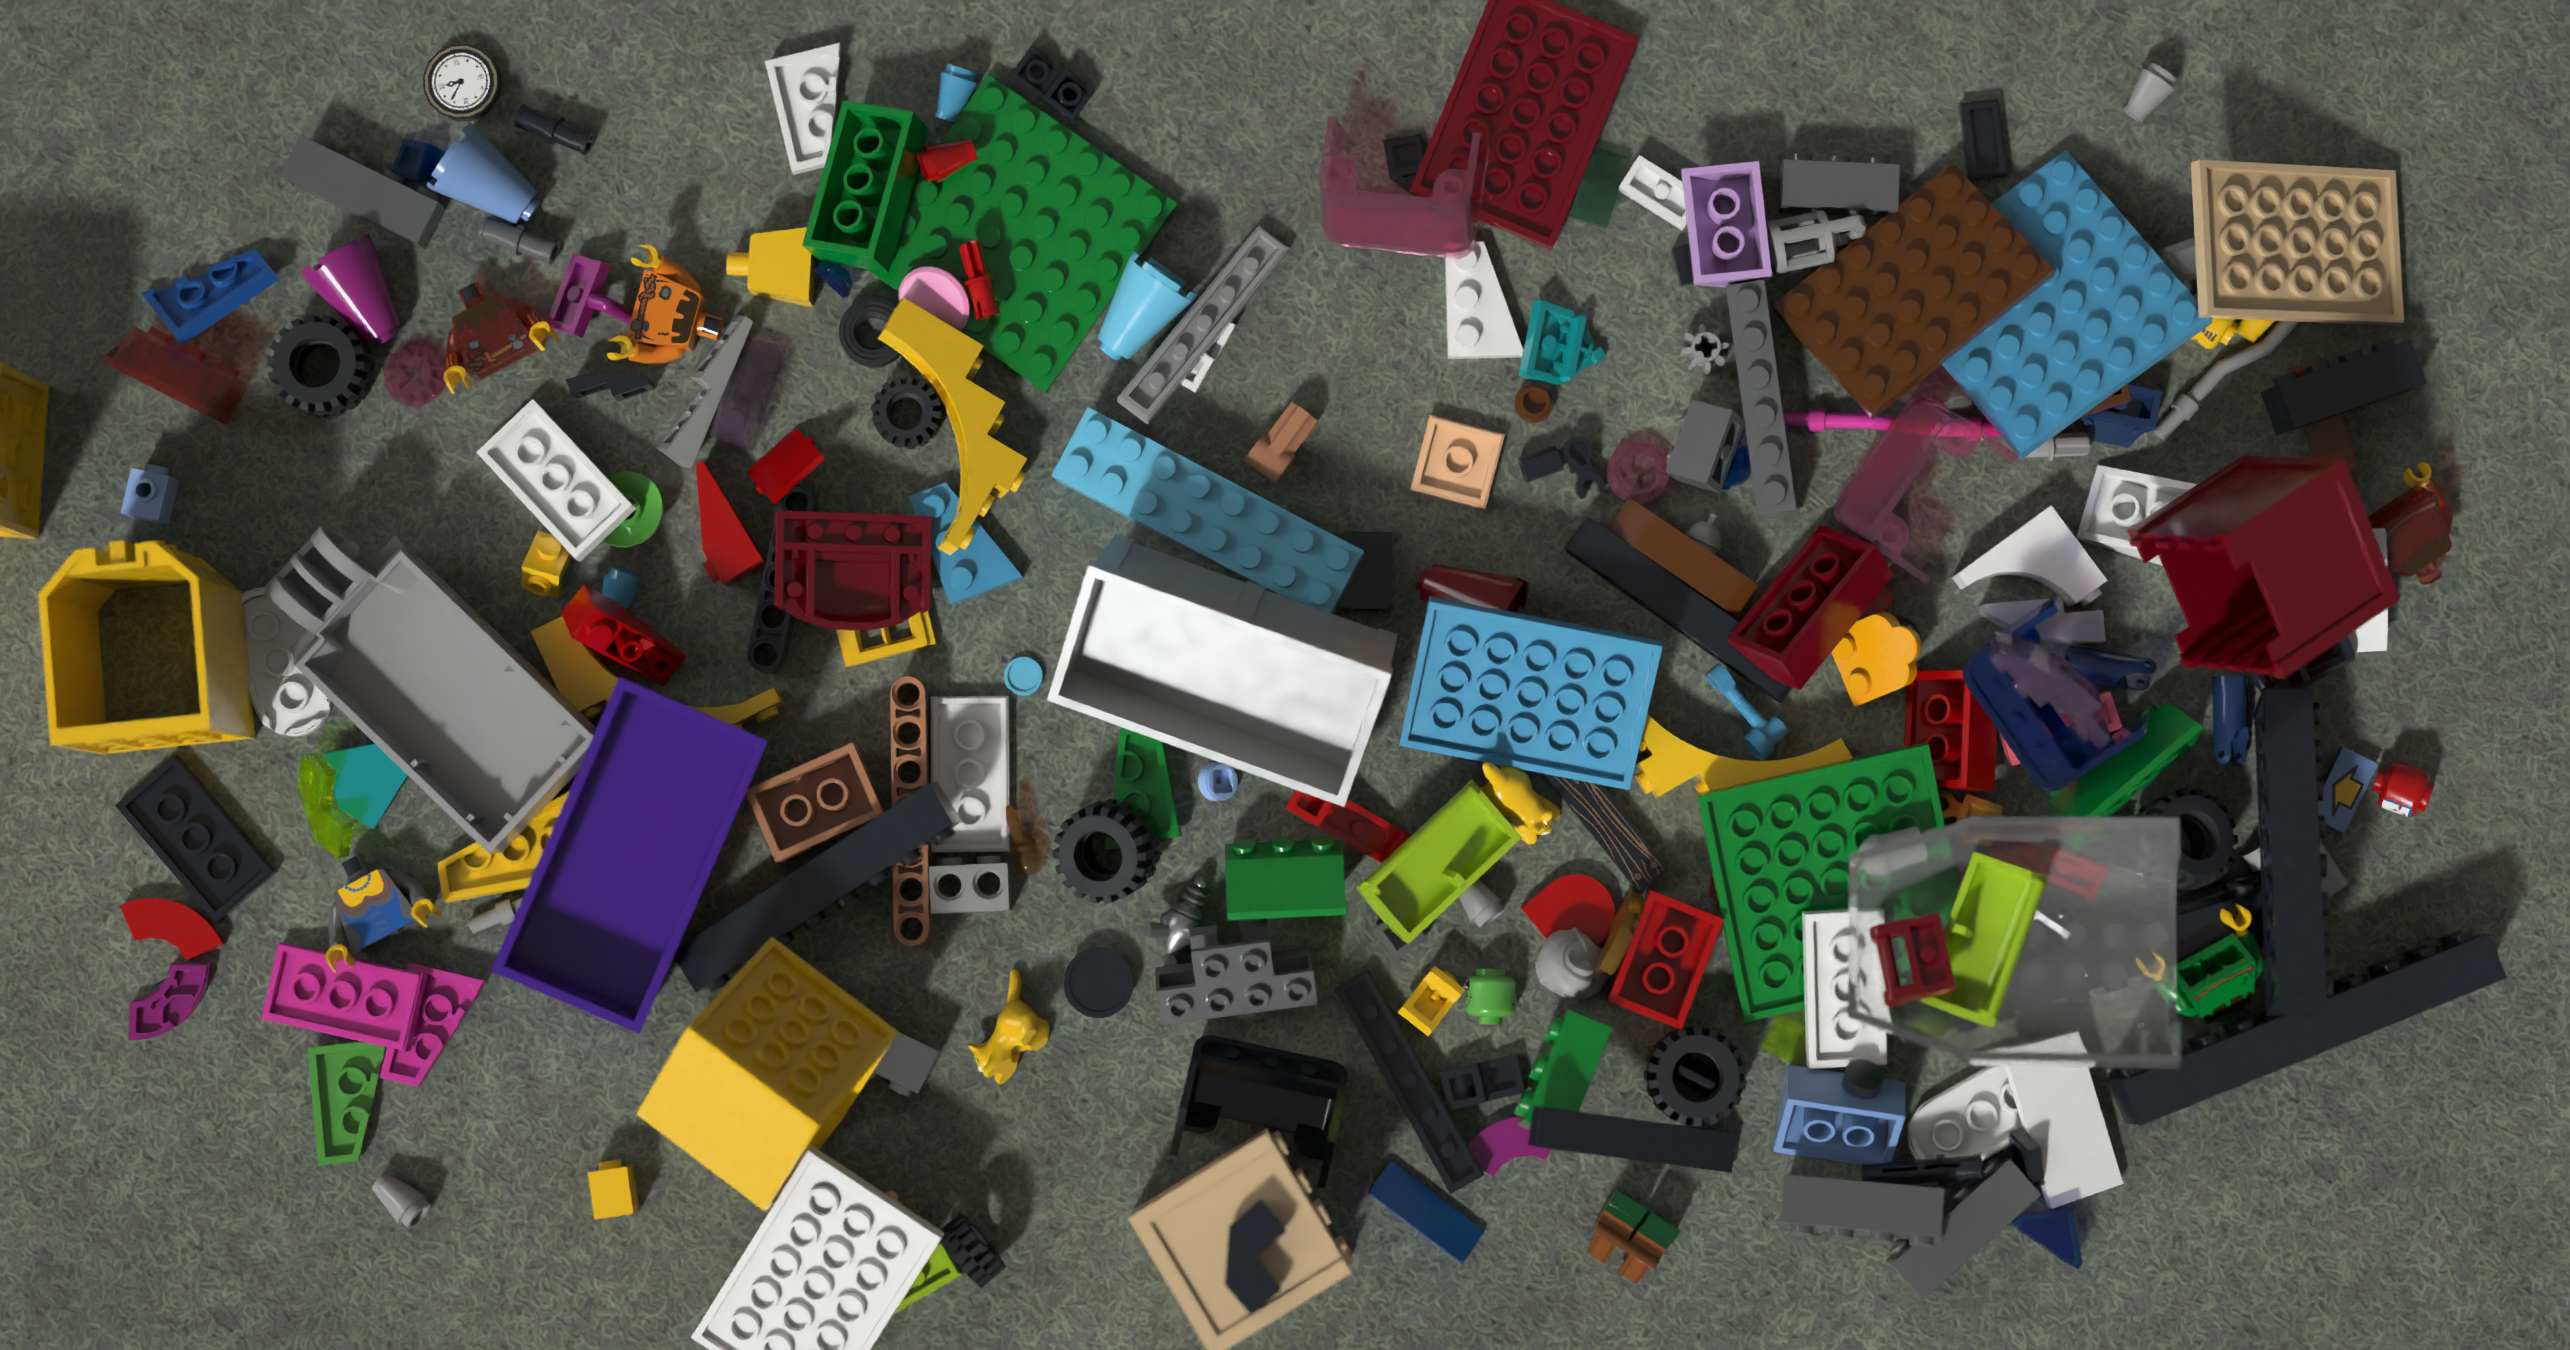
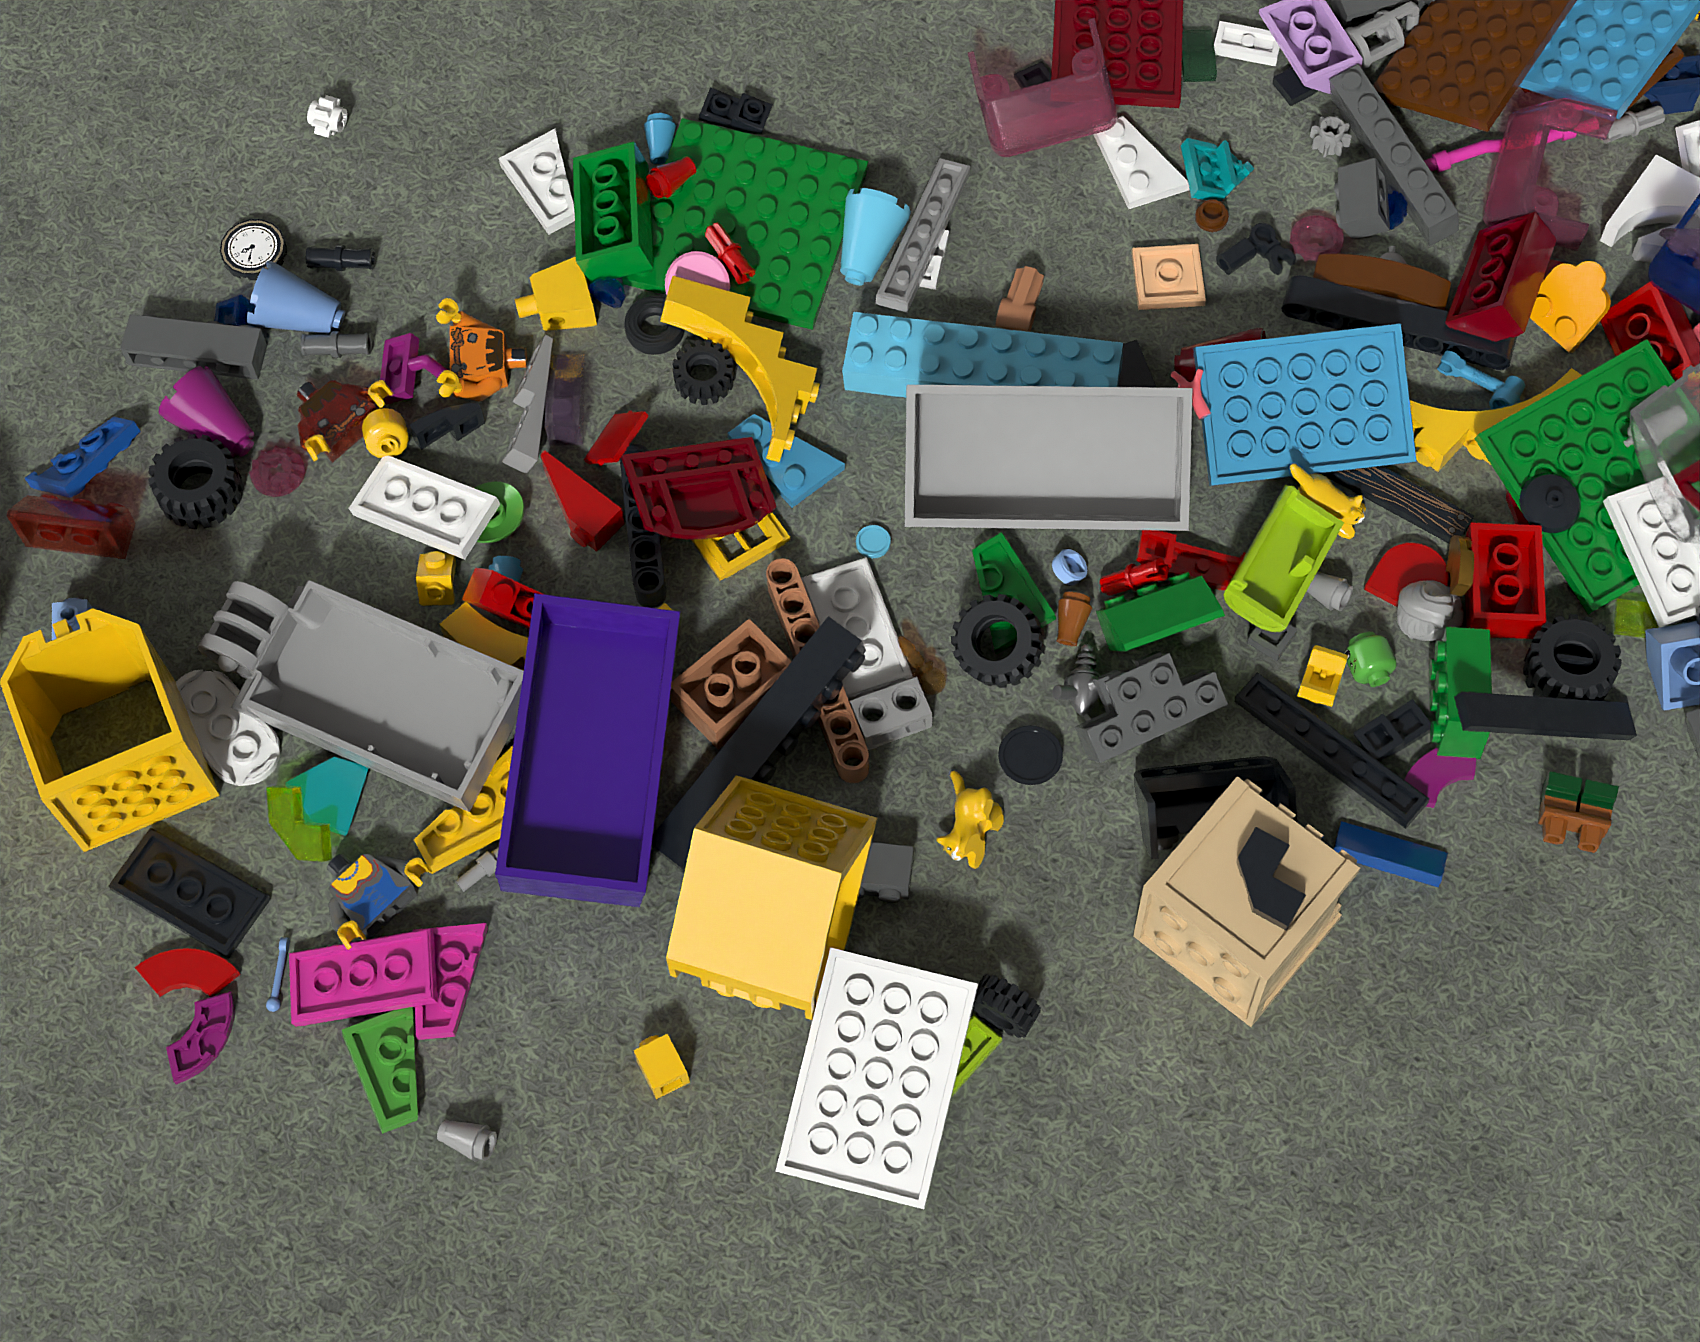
camera: 15 degrees left, 20 degrees down
(249, 988) = (273, 1003): none -> medium blue hinge
(539, 376) = (385, 433): none -> yellow head
(1199, 840) = (1072, 617): none -> dark orange cone
(1278, 823) = (1134, 577): none -> red axle
(1409, 649) = (1198, 402): none -> coral bar
(1746, 893) = (1550, 502): none -> black piece

